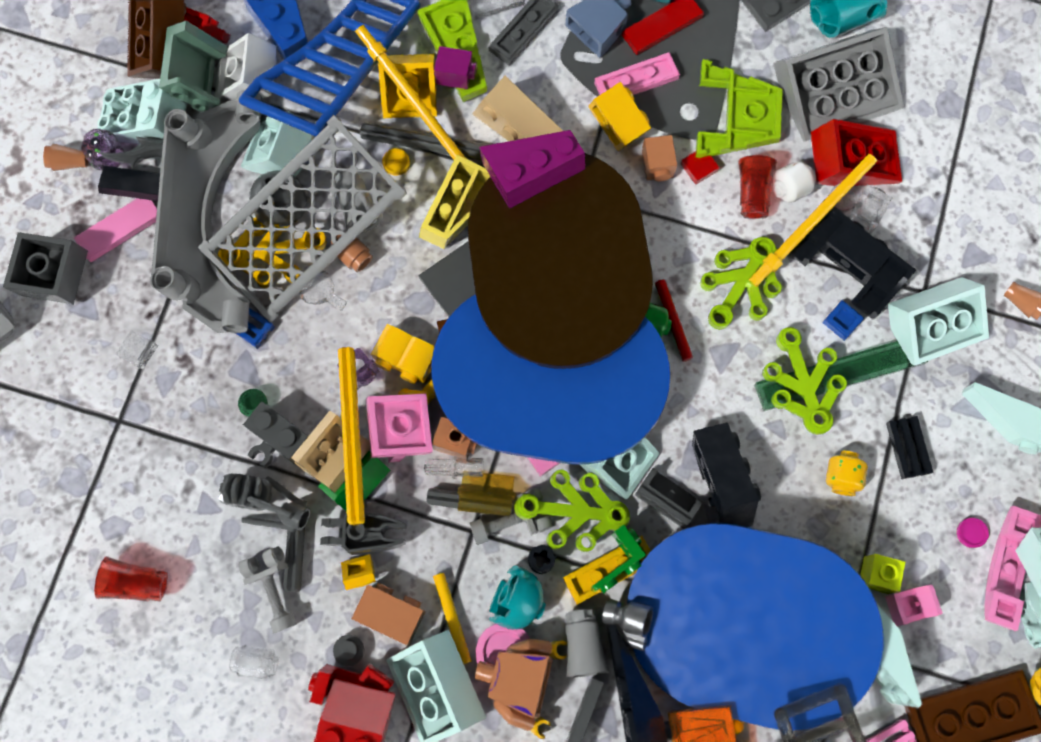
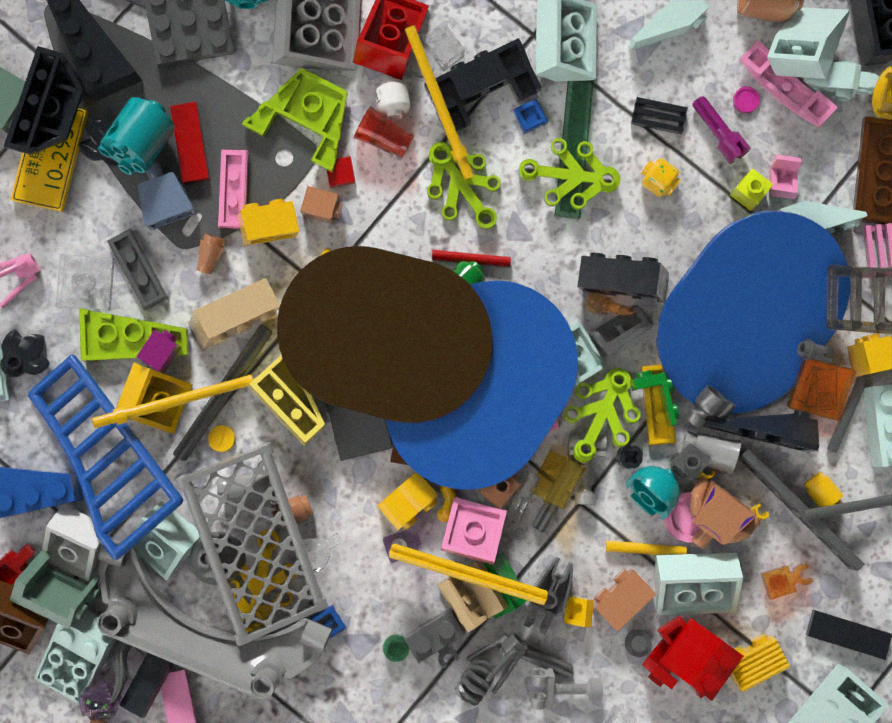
camera: 70 degrees left, 10 degrees up
(532, 164) = (295, 323): magenta wedge -> none
(562, 624) = (689, 462): none -> dark grey bracket
(567, 80) = (209, 253): none -> nougat cone
(686, 464) = (597, 303): none -> clear orange bar
(741, 712) = (810, 350): none -> dark grey pin
(920, 531) = (730, 143): none -> magenta piece

